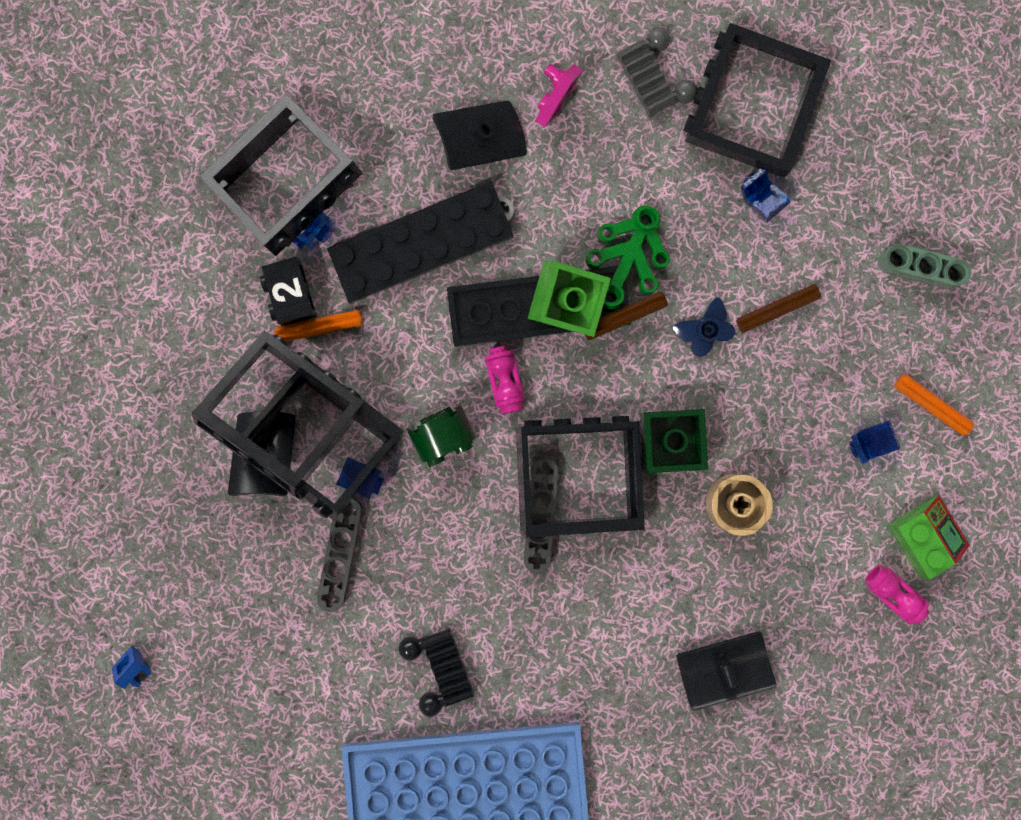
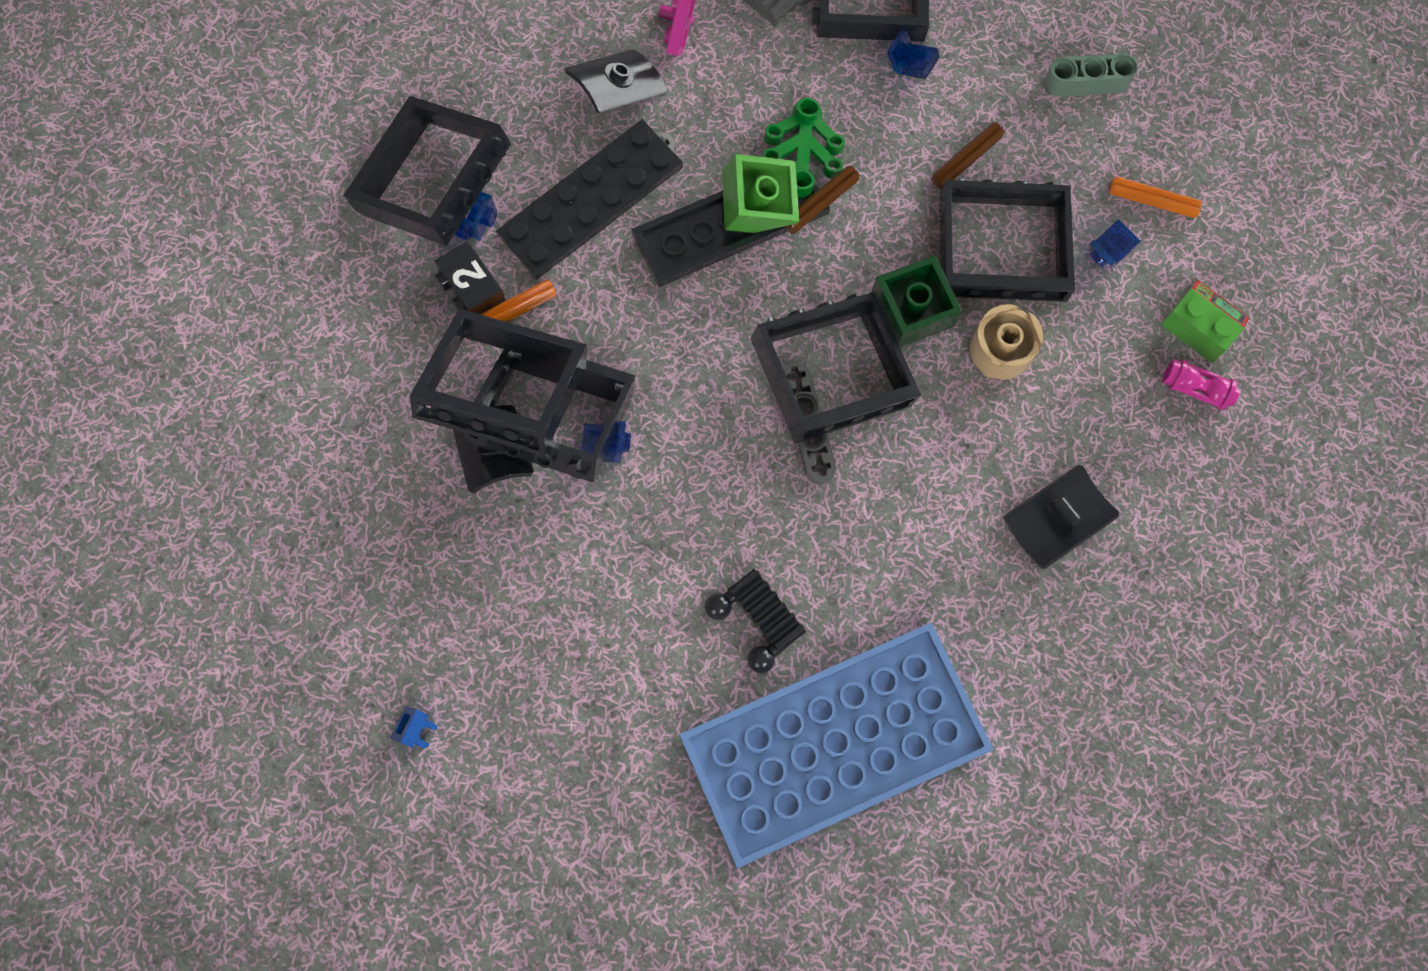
camera: 30 degrees left, 15 degrees down
(344, 555) = (605, 530): dark grey beam -> none
(442, 434) = (676, 366): dark green brick -> none
(507, 395) = (731, 313): dark pink piece -> none
(706, 329) = (905, 196): dark blue animal -> none
(806, 362) = (1007, 286): none -> black window

